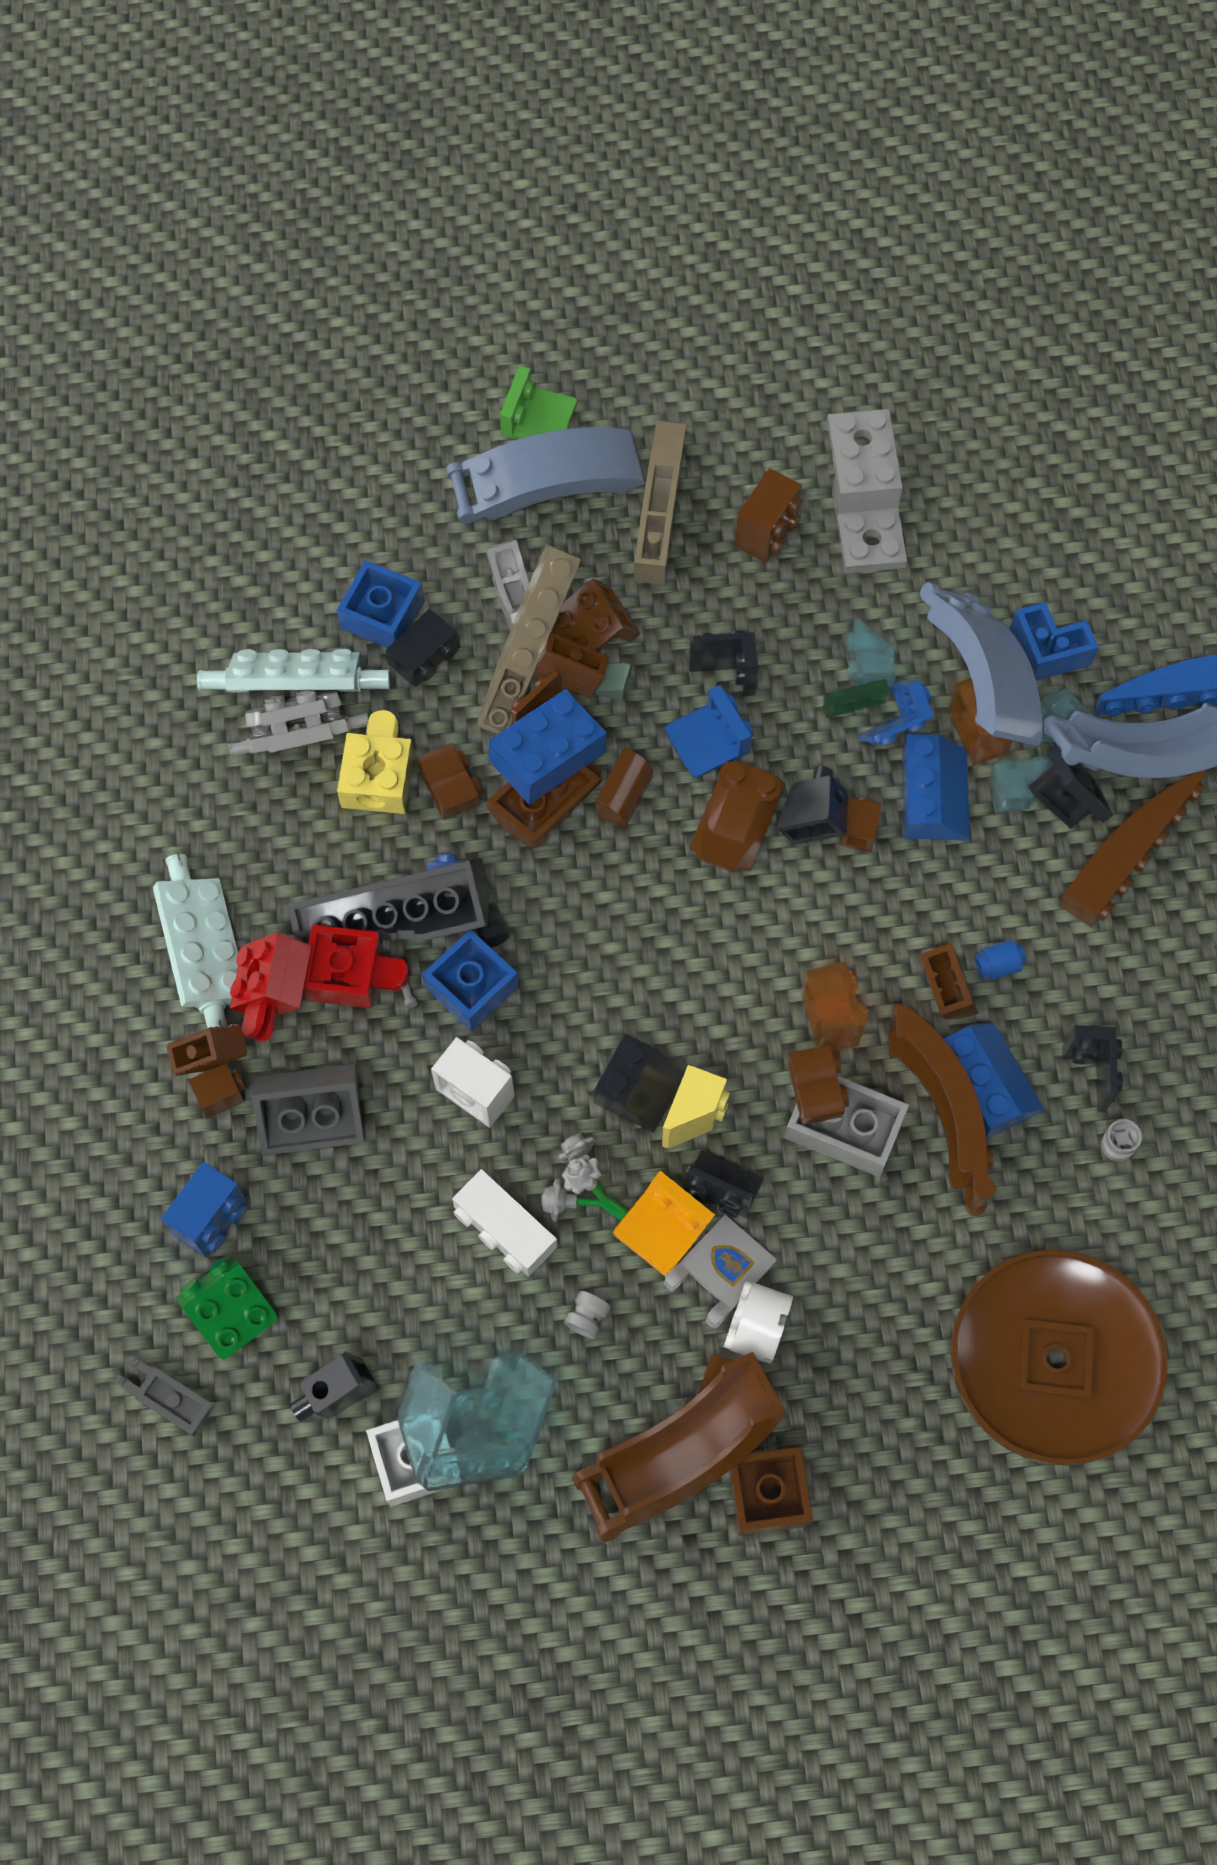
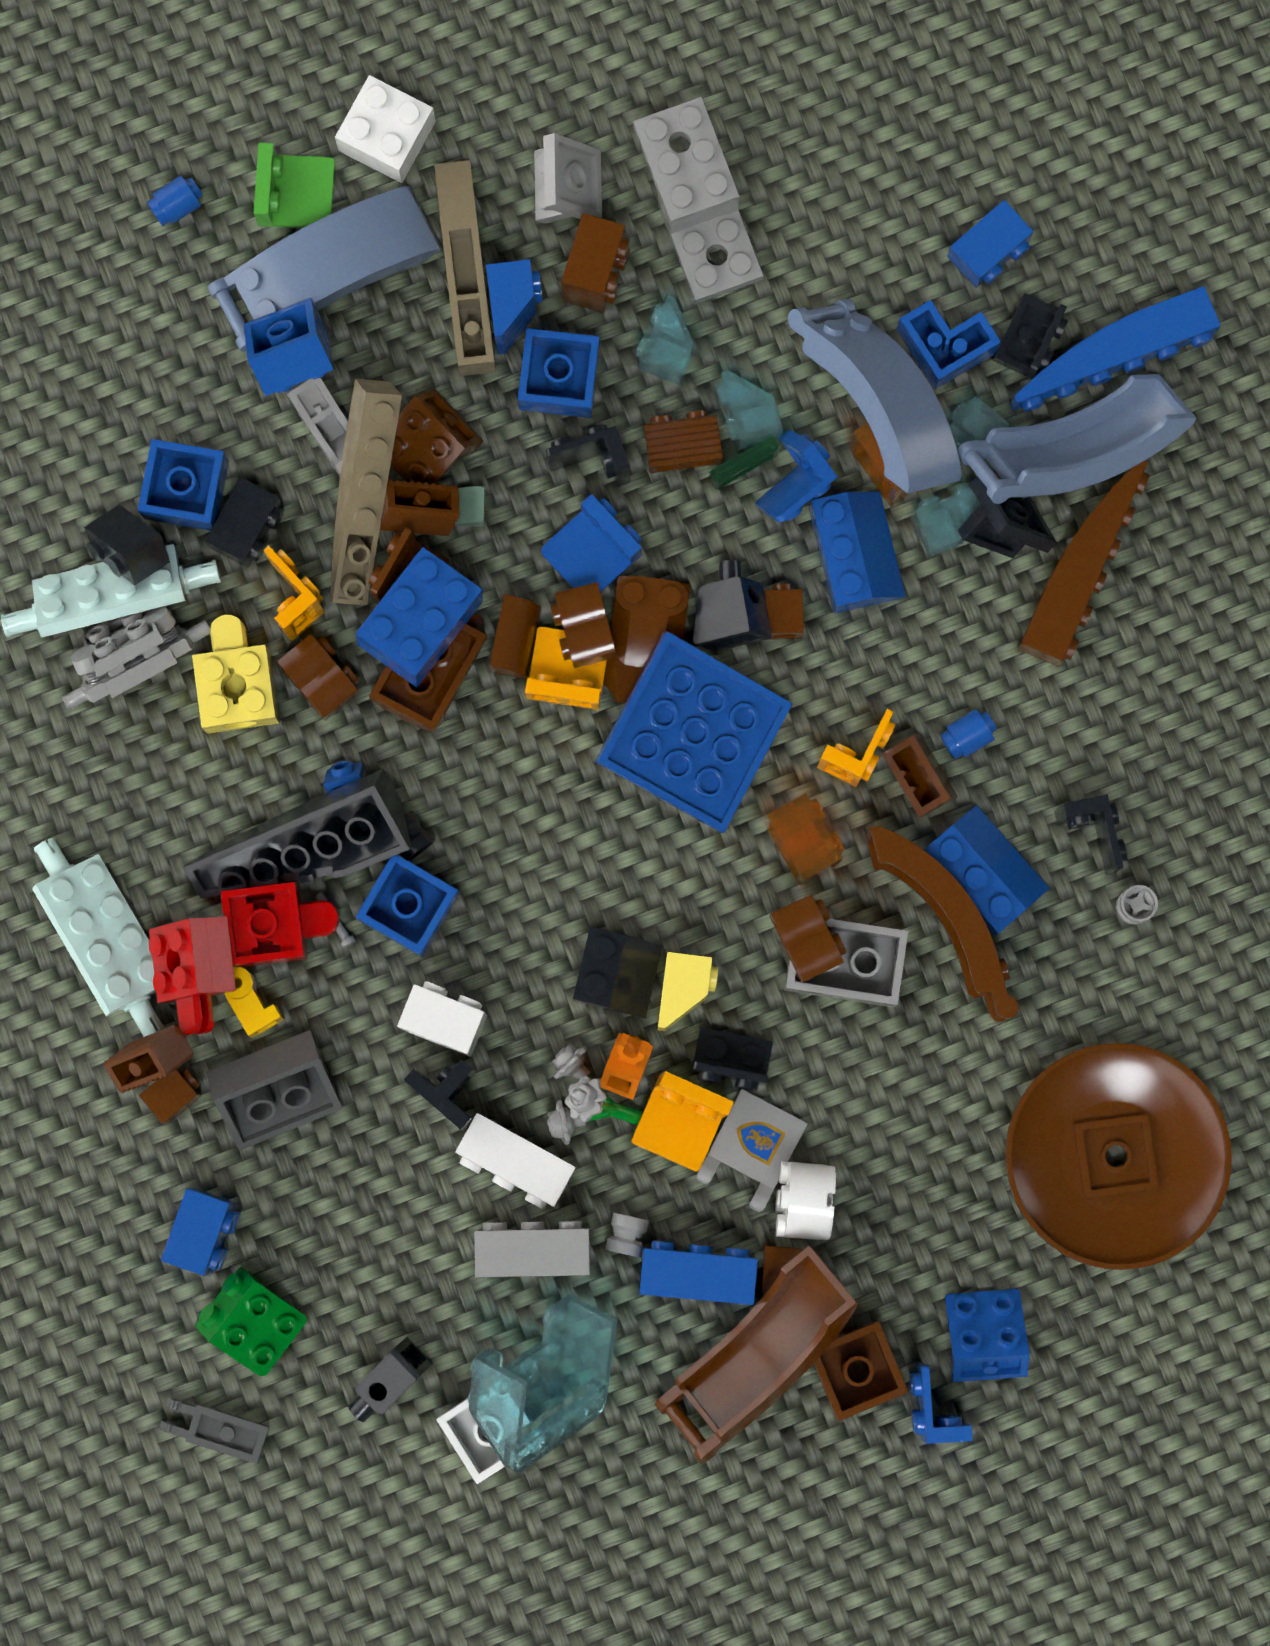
camera: 15 degrees left, 15 degrees up
(305, 1024) = (249, 1006): none -> yellow leg
(319, 637) = (126, 545): none -> black brick
(439, 400) = (175, 200): none -> blue brick
(446, 720) = (300, 612): none -> light orange bracket
(456, 1146) = (452, 1080): none -> black bracket
(497, 1302) = (532, 1250): none -> light grey brick
(498, 517) = (288, 347): none -> blue brick
(624, 385) = (385, 129): none -> white brick
(626, 1162) = (626, 1065): none -> orange brick
(642, 1362) = (698, 1273): none -> blue brick
(662, 826) = (557, 680): none -> light orange bracket
(686, 790) = (584, 625): none -> reddish brown brick
(693, 528) = (513, 299): none -> blue slope
(716, 592) = (558, 373): none -> blue brick
(758, 898) = (693, 732): none -> blue plate
(761, 447) = (566, 179): none -> light grey bracket
(807, 670) = (682, 442): none -> reddish brown brick
(814, 595) = (669, 345): none -> clear light blue slope
(840, 1569) = (947, 1427): none -> blue bracket
(890, 960) = (842, 762): none -> light orange bracket
(899, 1496) = (987, 1335): none -> blue bracket
(1105, 579) = (991, 244): none -> blue brick
(1124, 655) = (1029, 336): none -> black bracket

